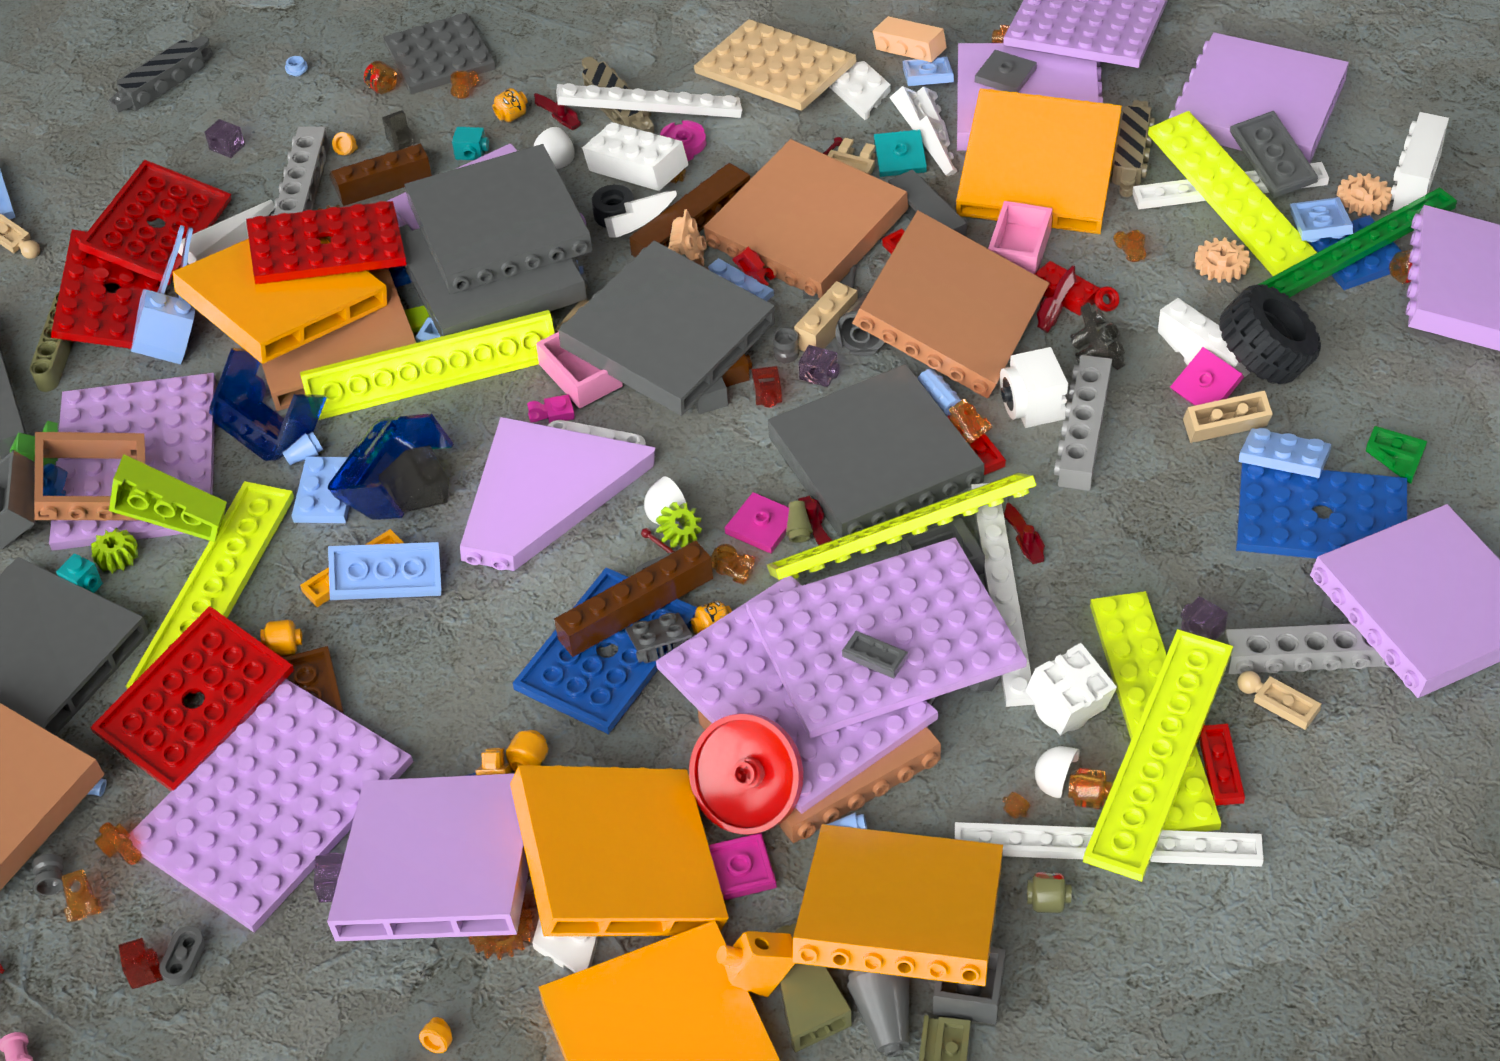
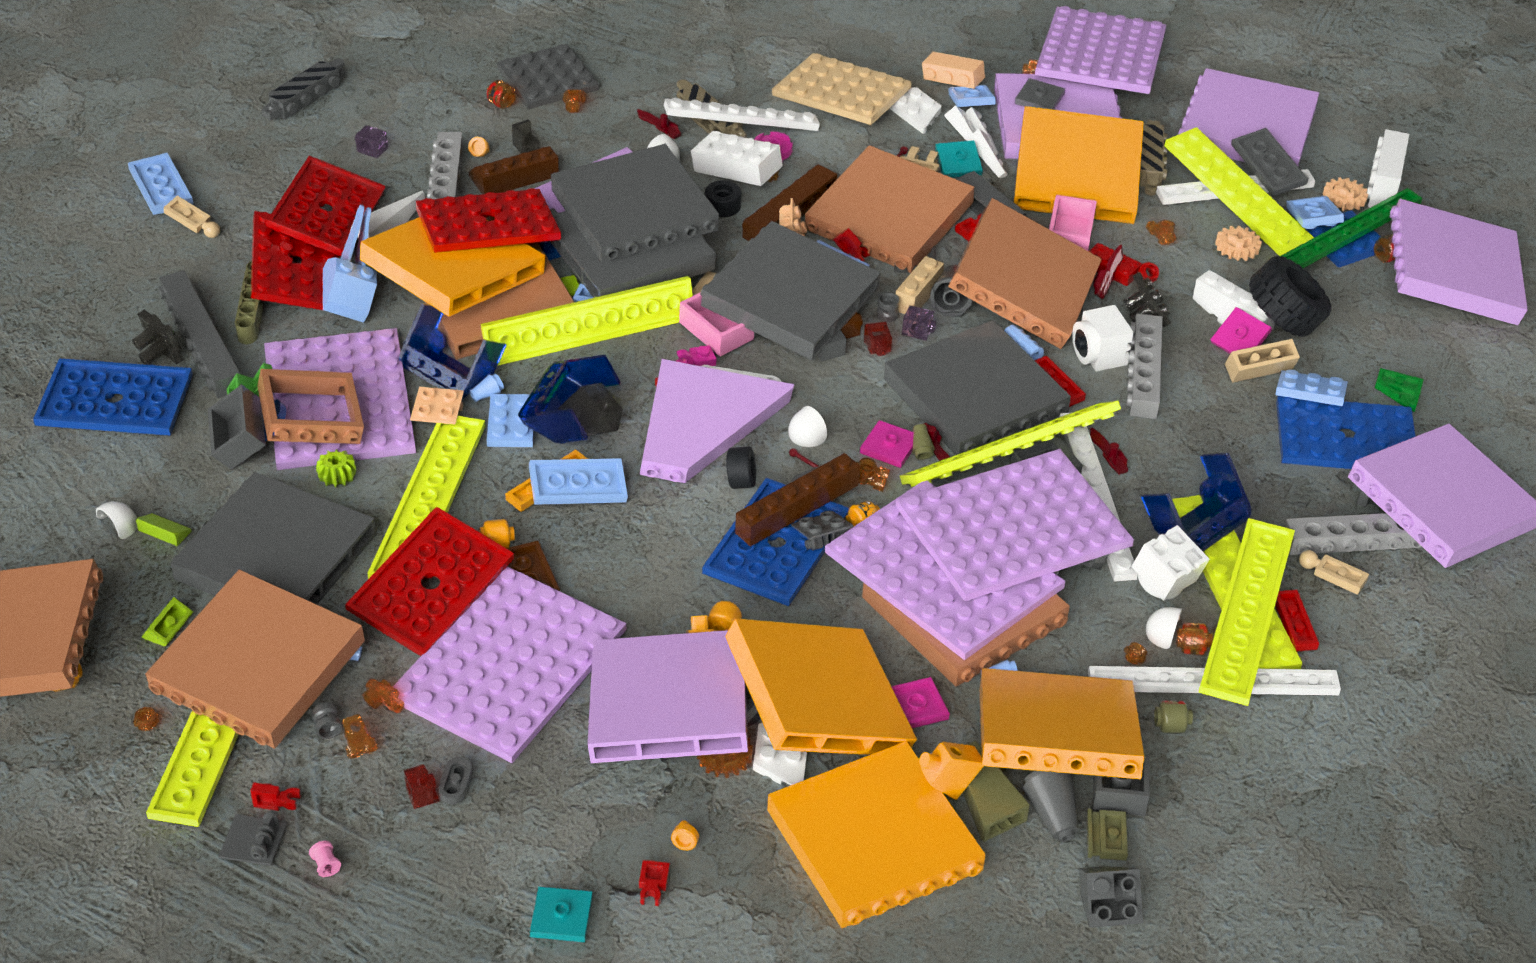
camera: 10 degrees left, 5 degrees down
(81, 572) = (311, 482): teal brick -> none
(164, 500) = (383, 424): lime wedge -> none
(241, 472) = (437, 405): none -> light nougat hinge
(296, 66) = (423, 84): light blue plate -> none
(326, 875) = (574, 718): clear purple brick -> none
(469, 143) = (589, 147): teal brick -> none
(510, 105) = (619, 117): light orange head -> none
(577, 554) = (741, 467): none -> black tyre
(638, 213) = (747, 203): white slope -> none
(686, 520) = (822, 444): lime gear -> none
(746, 773) = (917, 628): dish -> none
(874, 654) = (1012, 534): dark grey plate -> none
(969, 421) = (1051, 362): clear orange plate -> none
(1146, 620) = (1222, 508): none -> clear blue windscreen
(1203, 619) = (1267, 510): clear purple brick -> none

